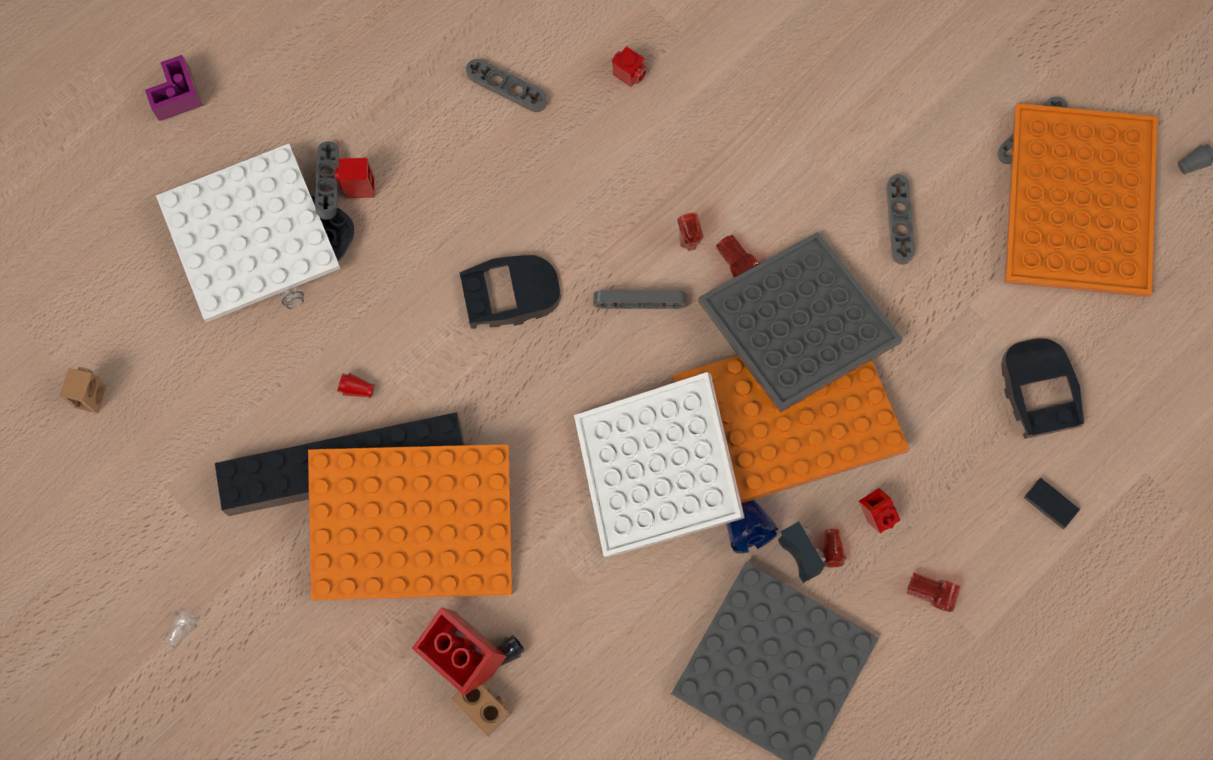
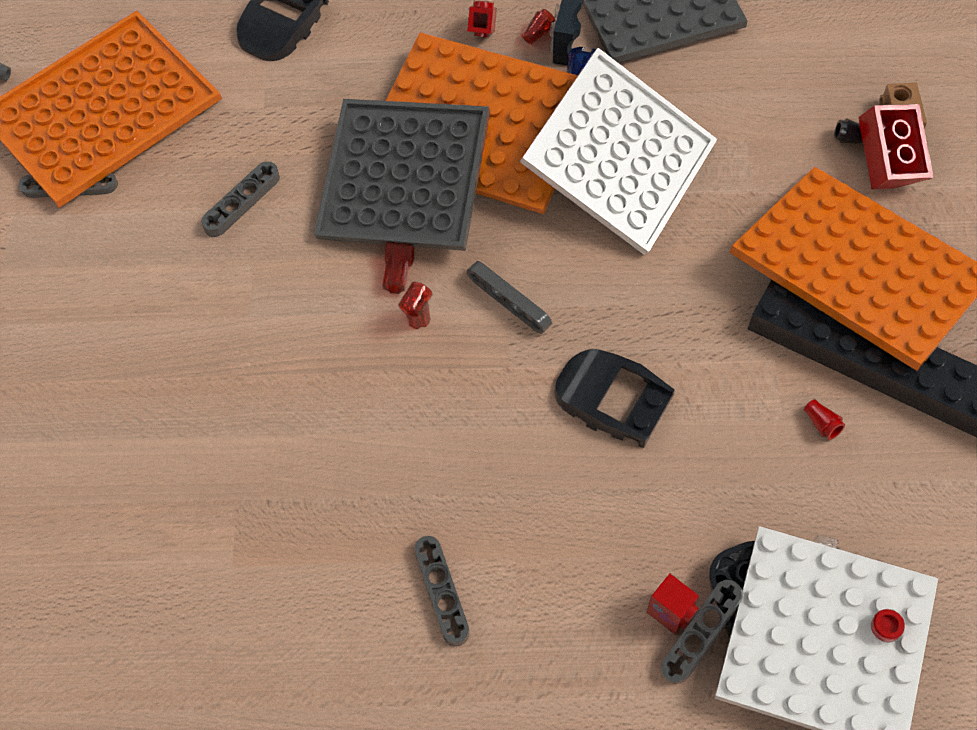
camera: 140 degrees left, 10 degrees down
(214, 258) = (887, 625): none -> red tile
(629, 66) = (316, 501): red brick -> none

